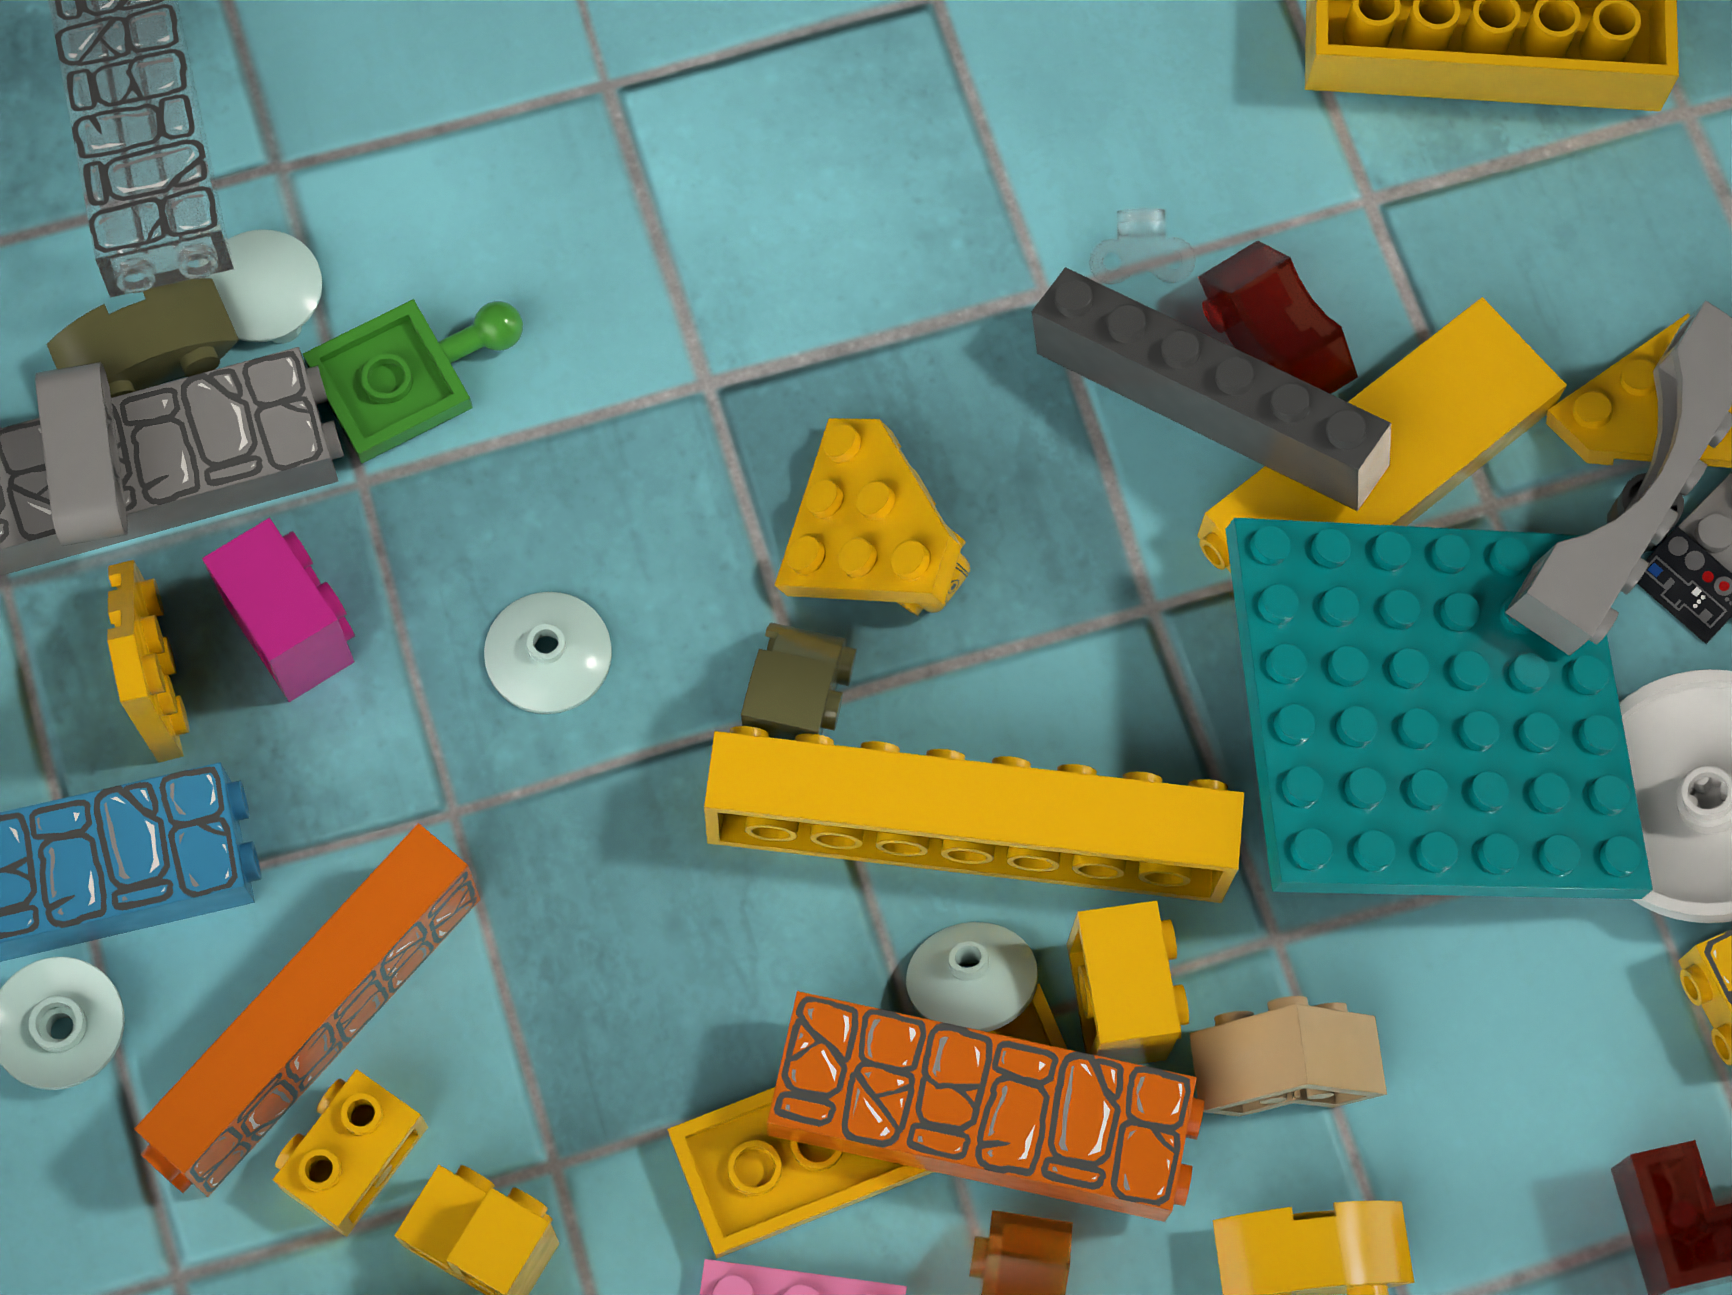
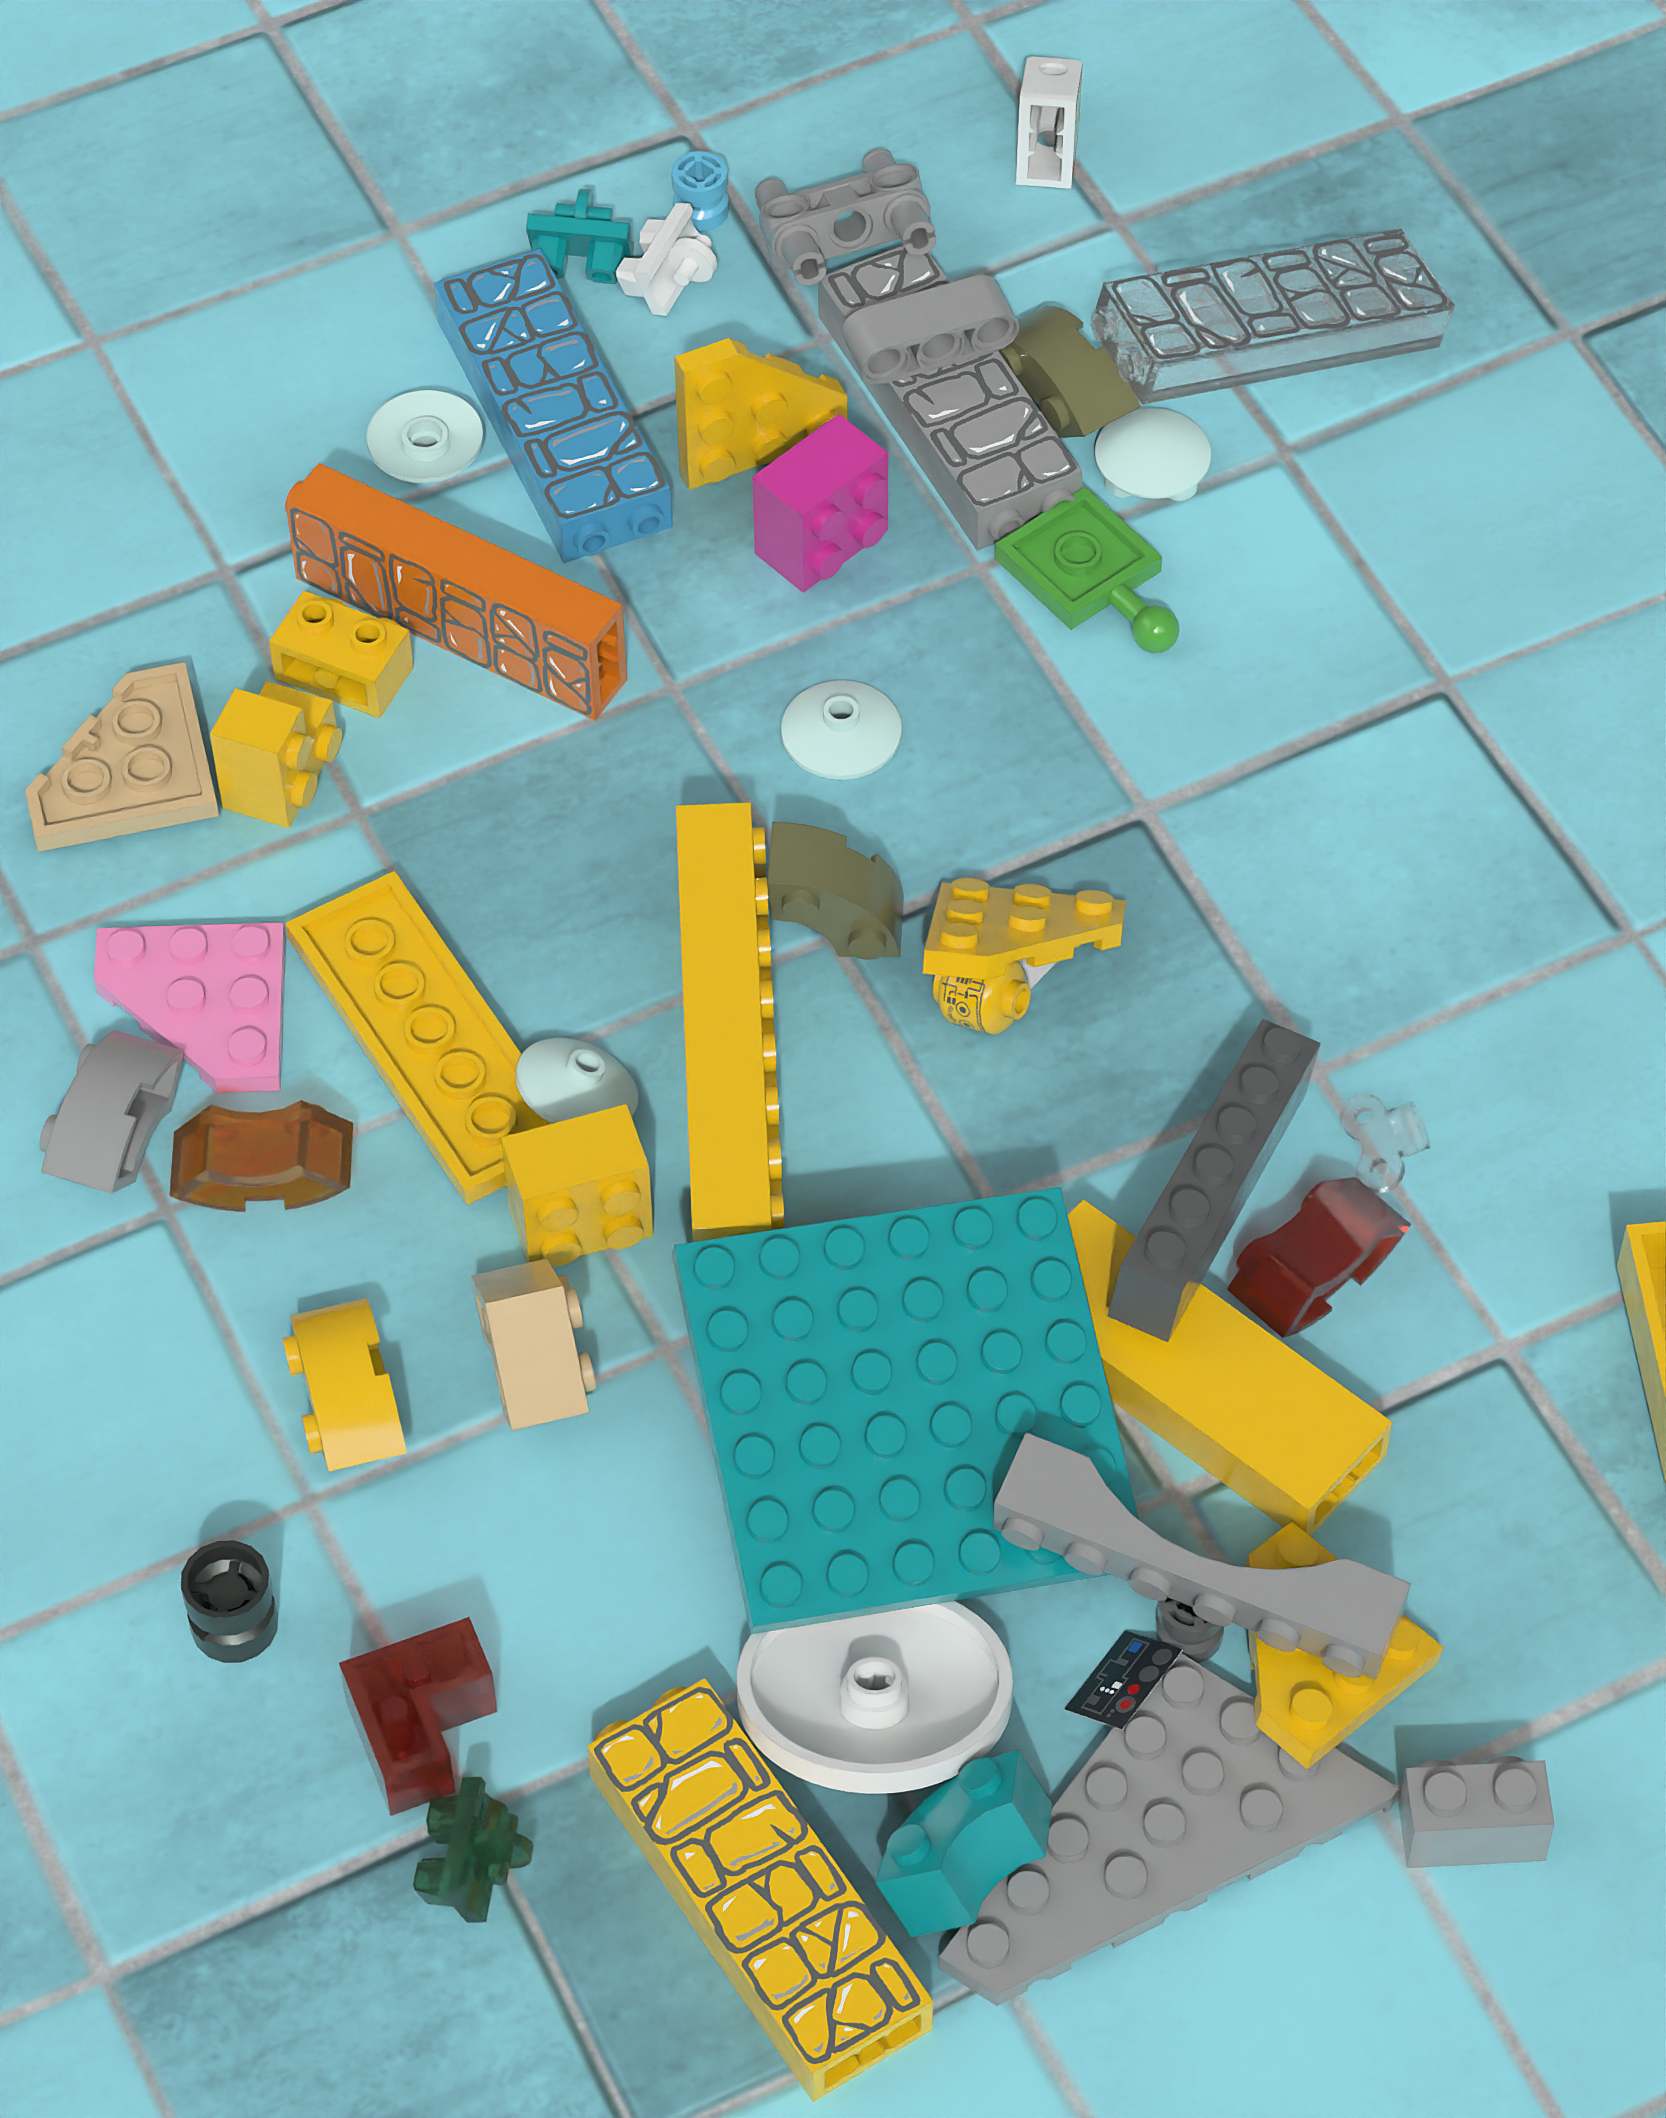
camera: 85 degrees right, 15 degrees down
(985, 1107) = (441, 1090): orange brick -> none

